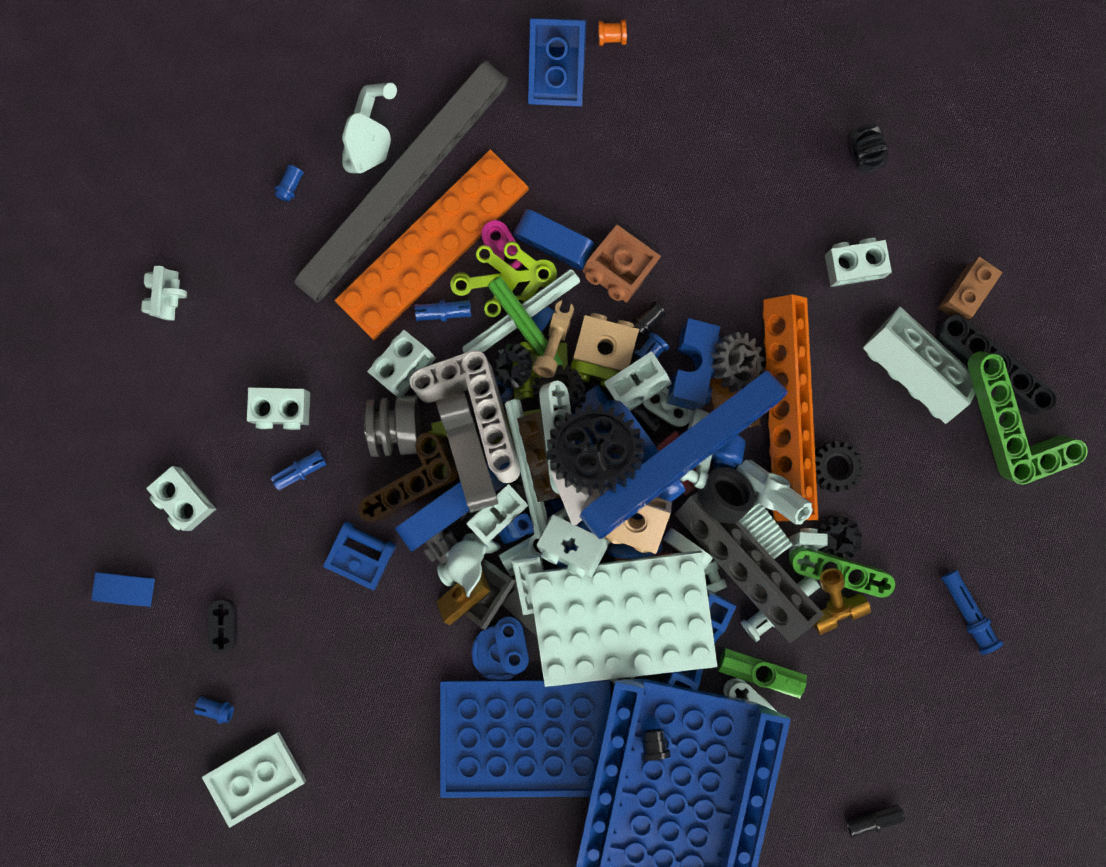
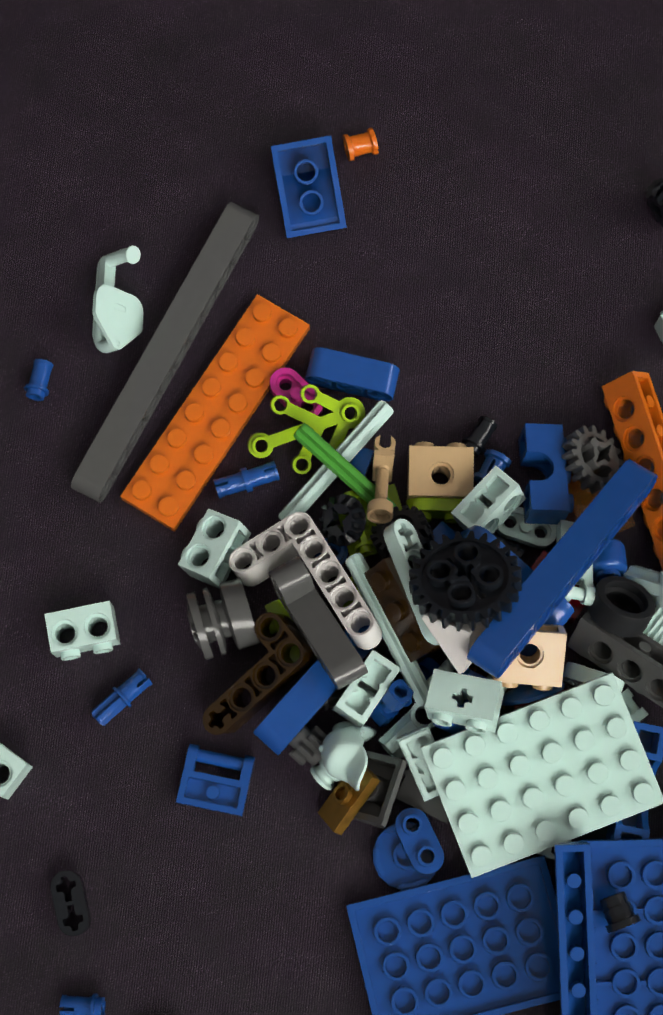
camera: 15 degrees left, 10 degrees down
(620, 264) = (433, 384): nougat plate -> none

